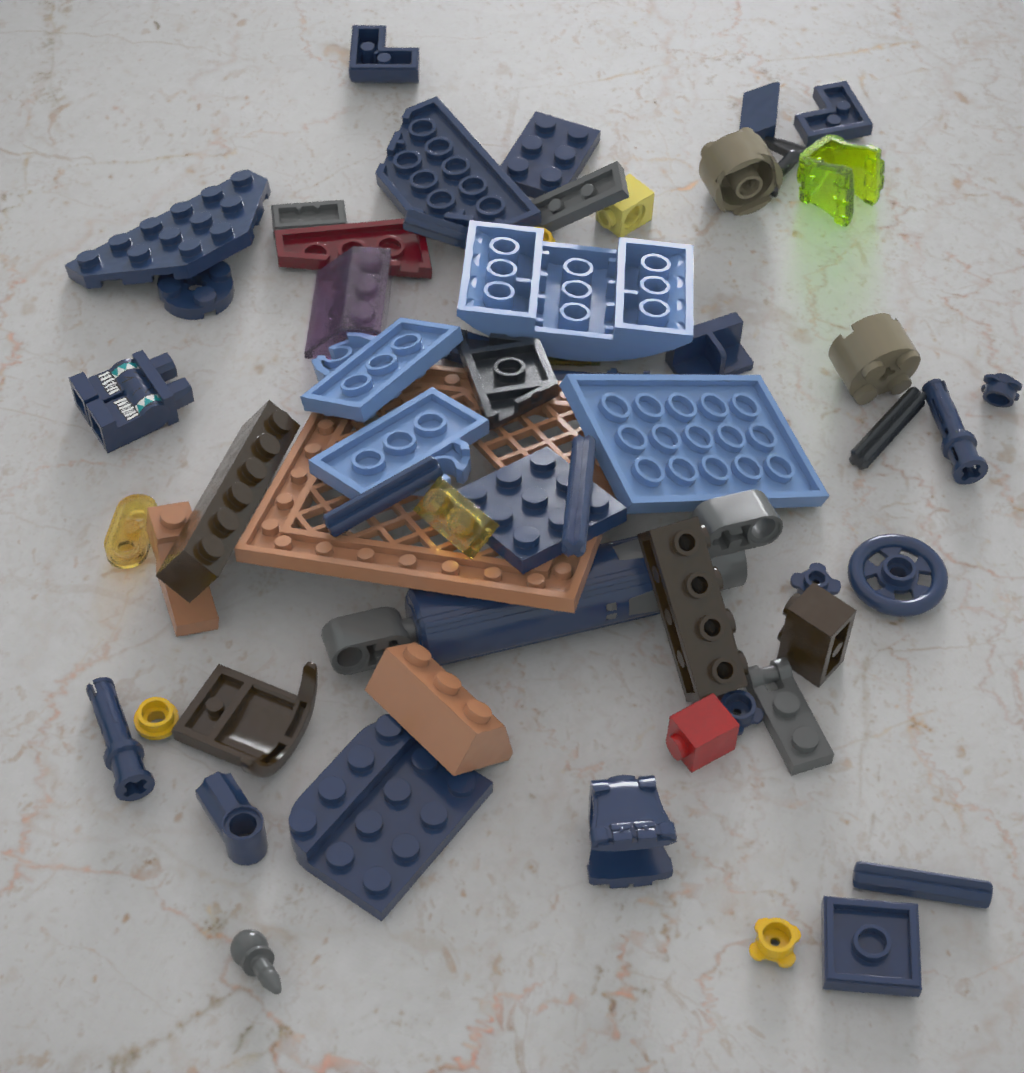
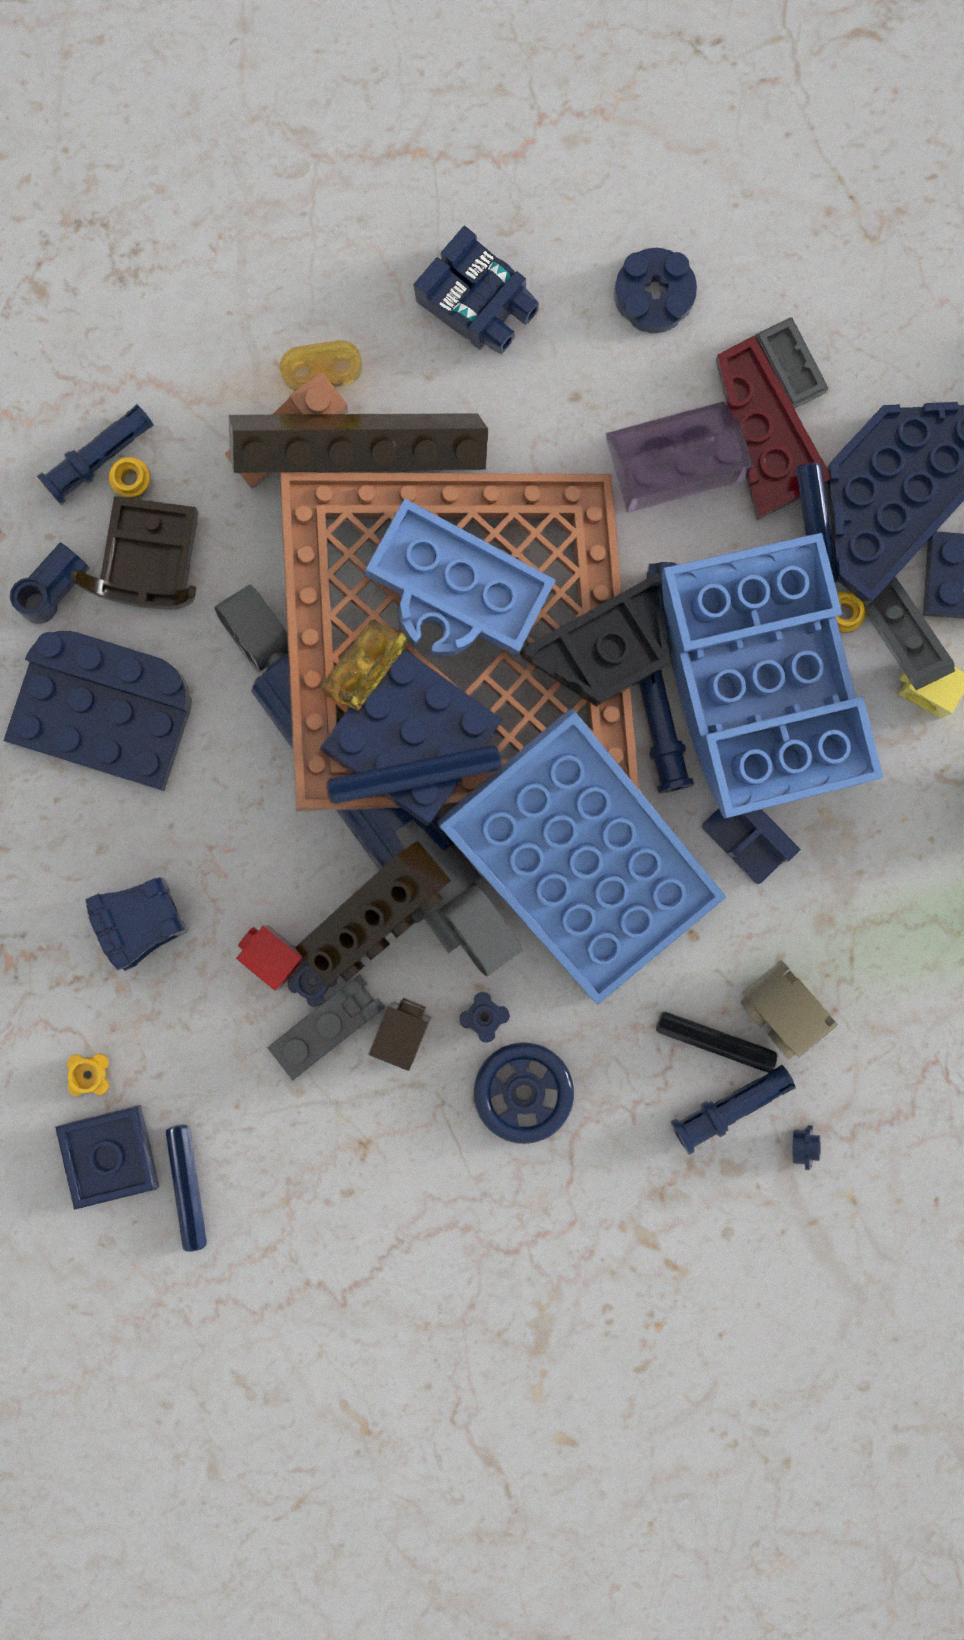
camera: 75 degrees right, 35 degrees up
(181, 240) = (709, 250): dark blue plate -> none
(375, 369) = (573, 515): medium blue plate -> none
(382, 496) = (366, 587): dark blue axle -> none
(438, 710) = (198, 721): nougat slope -> none

